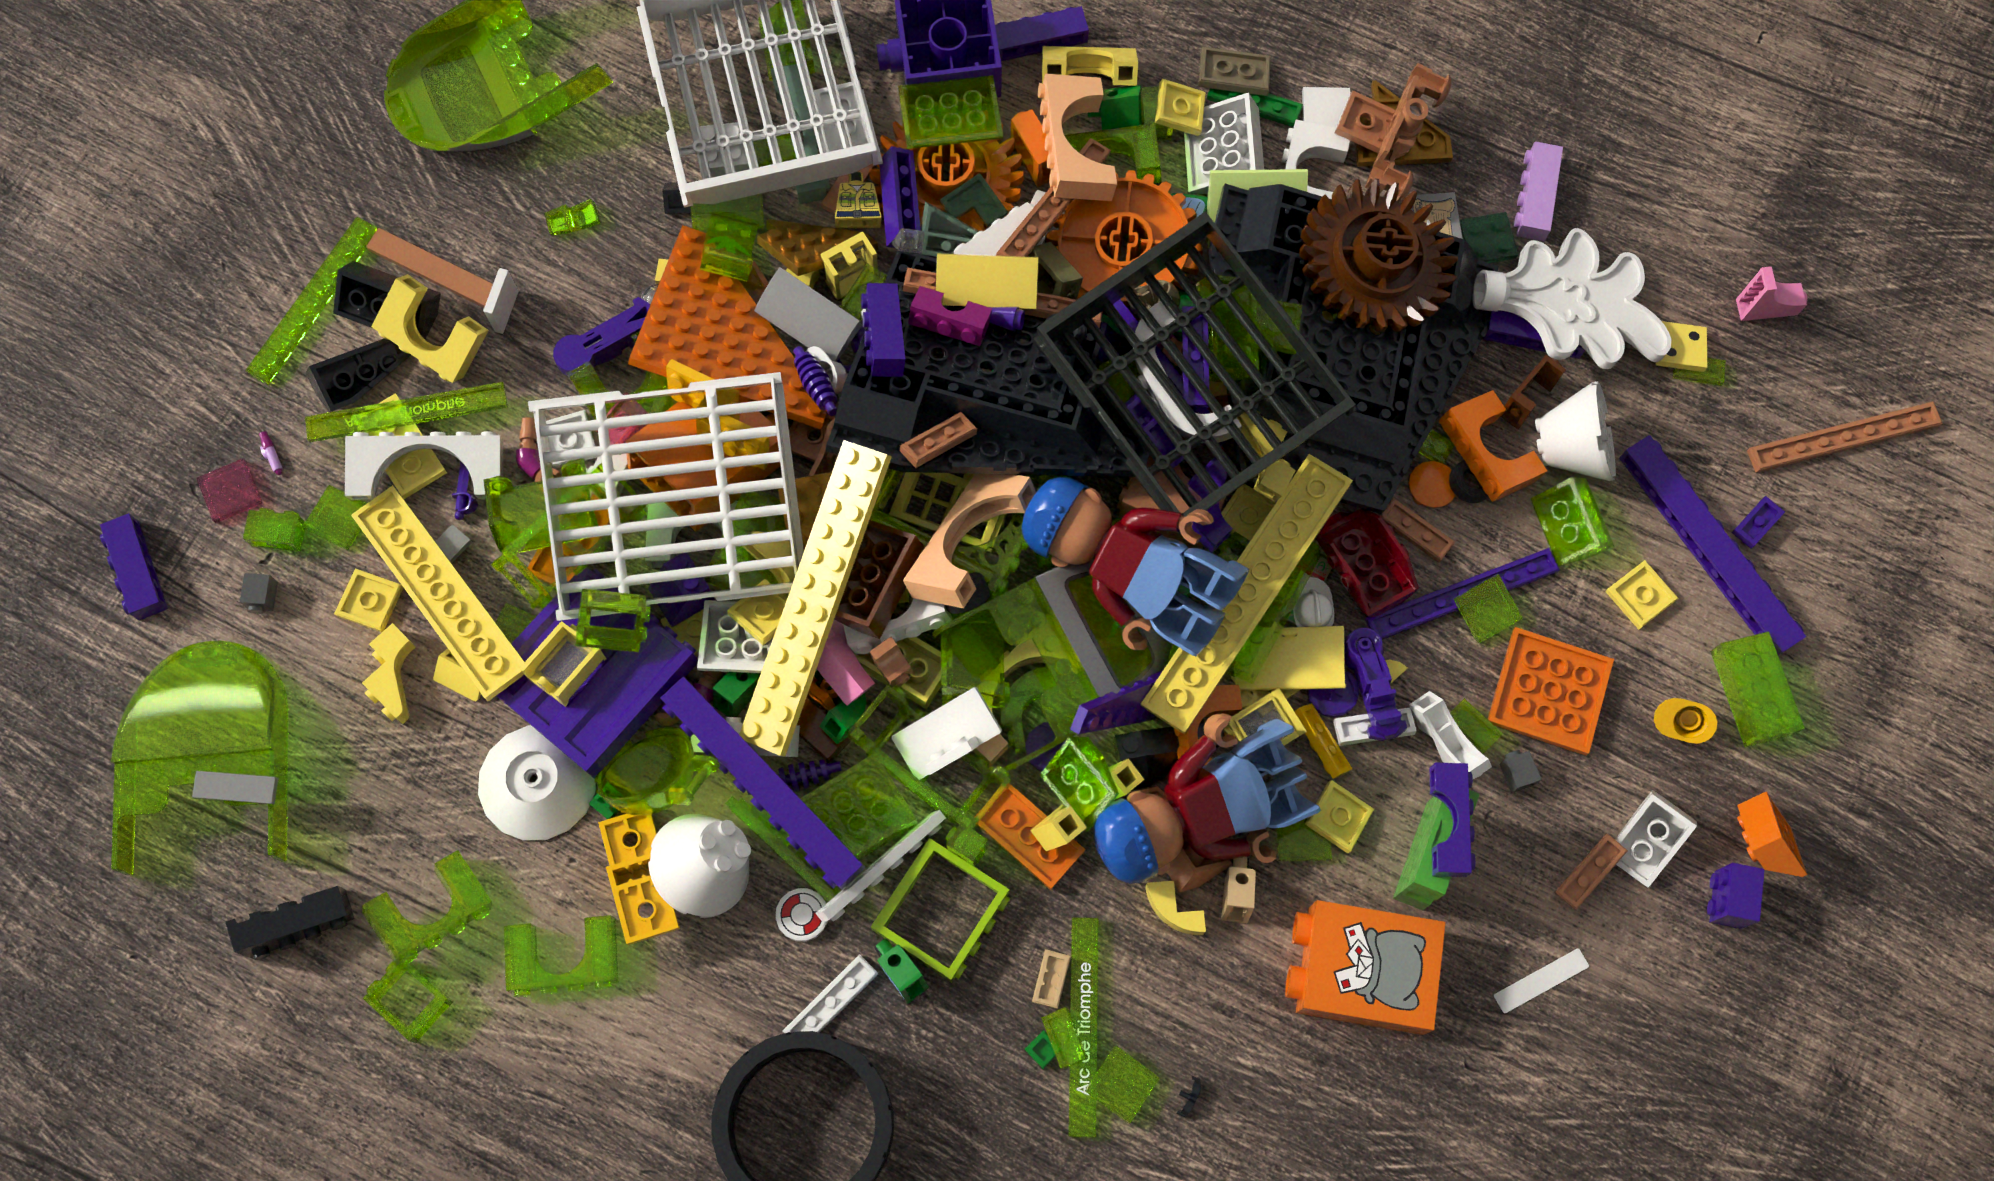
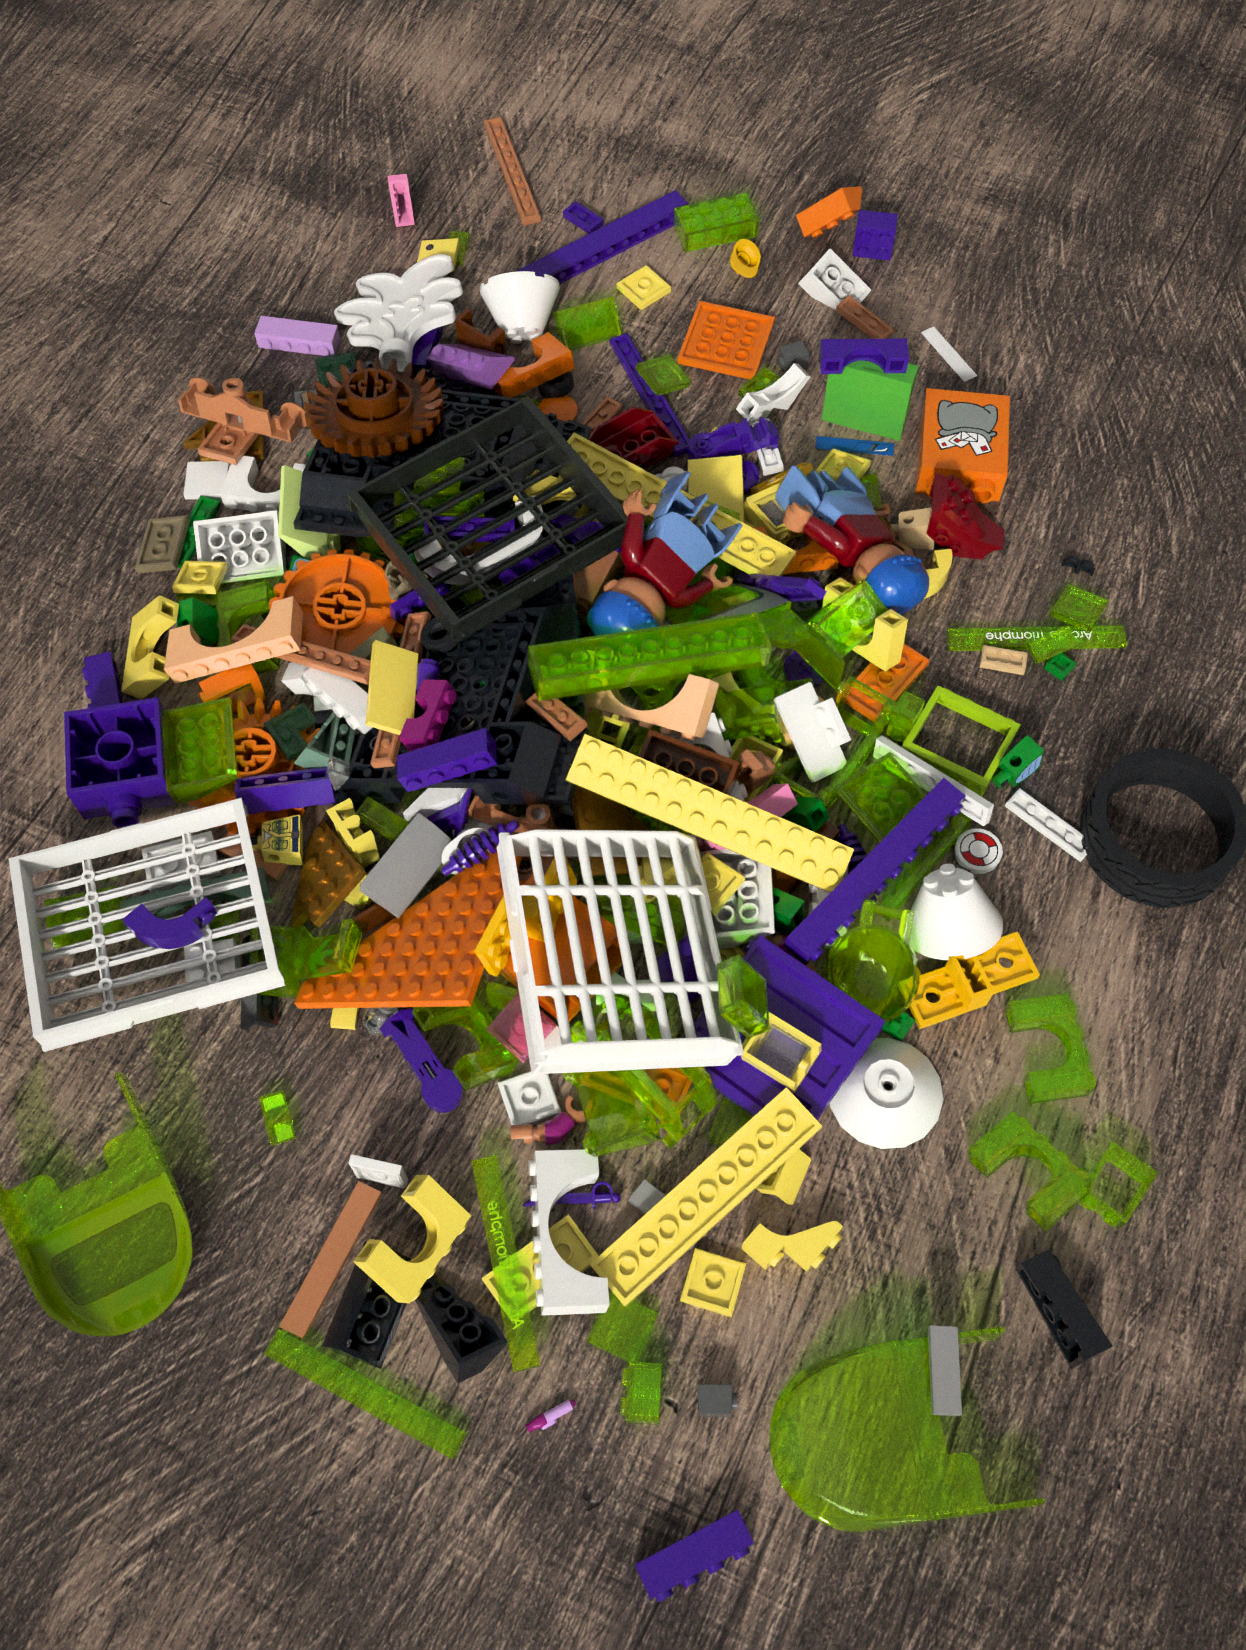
camera: 90 degrees left, 10 degrees down
(229, 490) = (596, 1457): clear pink tile -> none
(745, 89) = (171, 932): none -> dark purple arch
(1001, 536) = (648, 655): none -> clear neon green brick
(1244, 948) = (959, 522): none -> dark red slope
(1383, 840) = (855, 446): none -> blue sticker
(1489, 377) = (469, 364): none -> medium lavender slope

